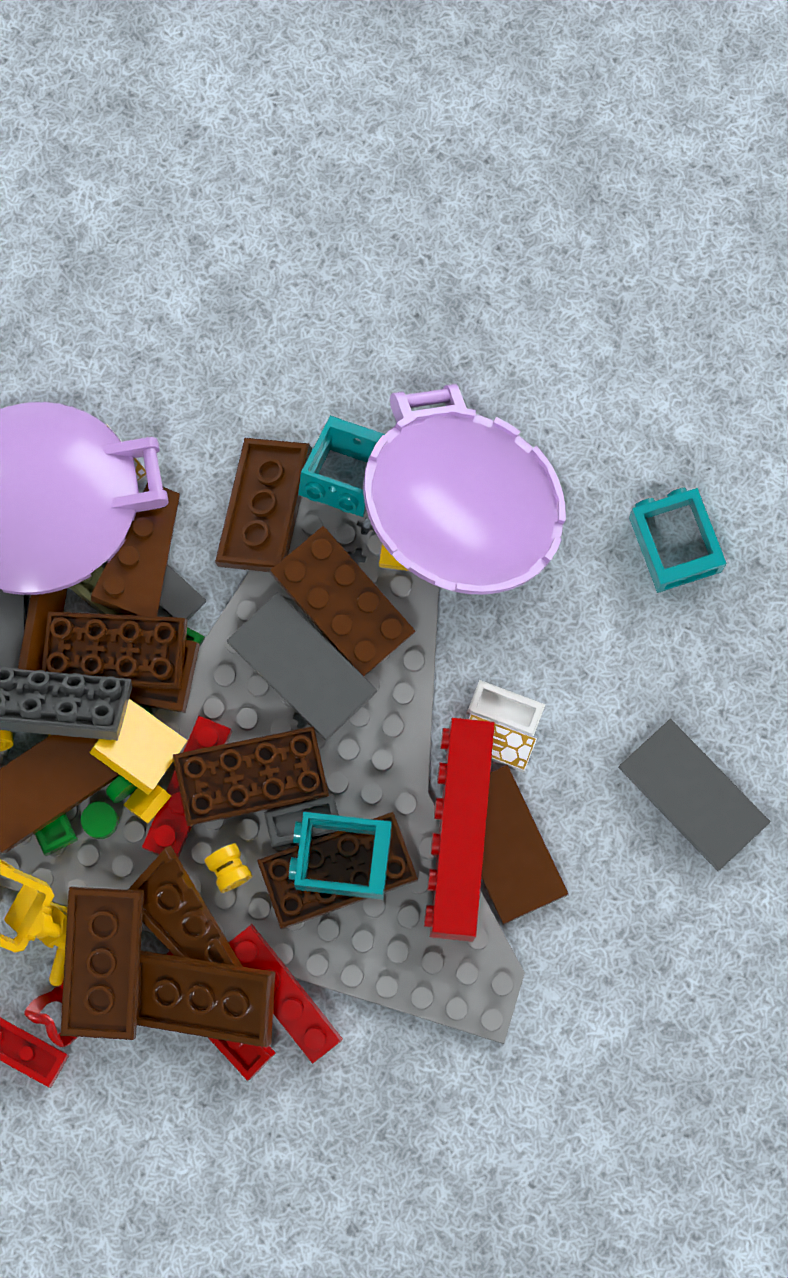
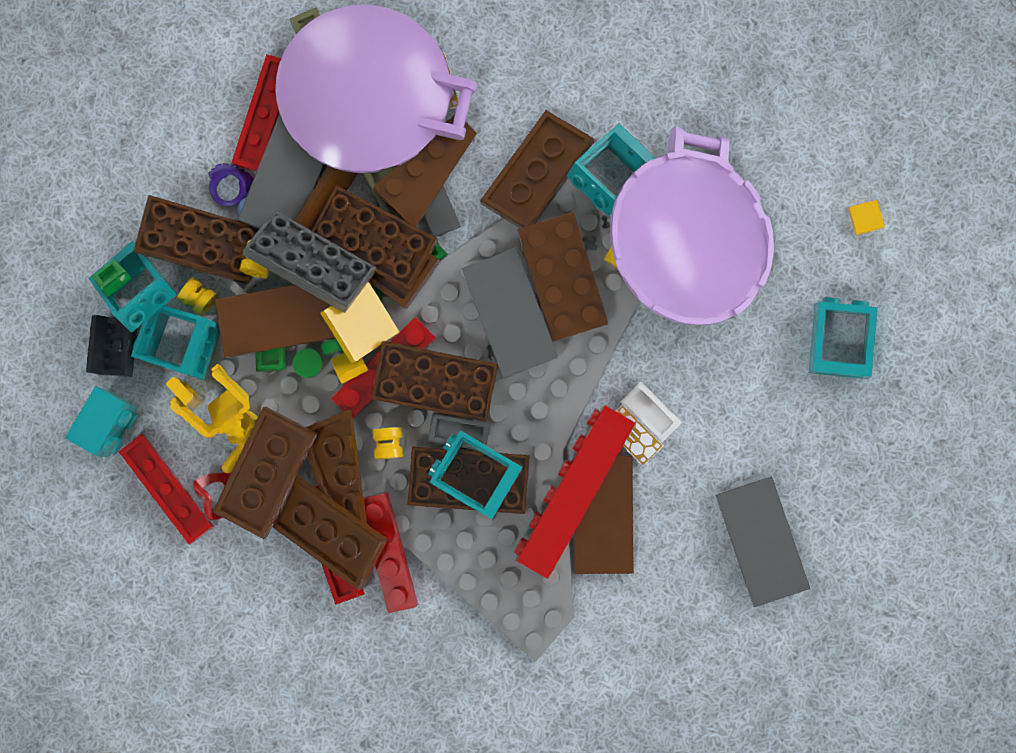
camera: 25 degrees right, 10 degrees up
(640, 404) = (866, 217): none -> yellow tile

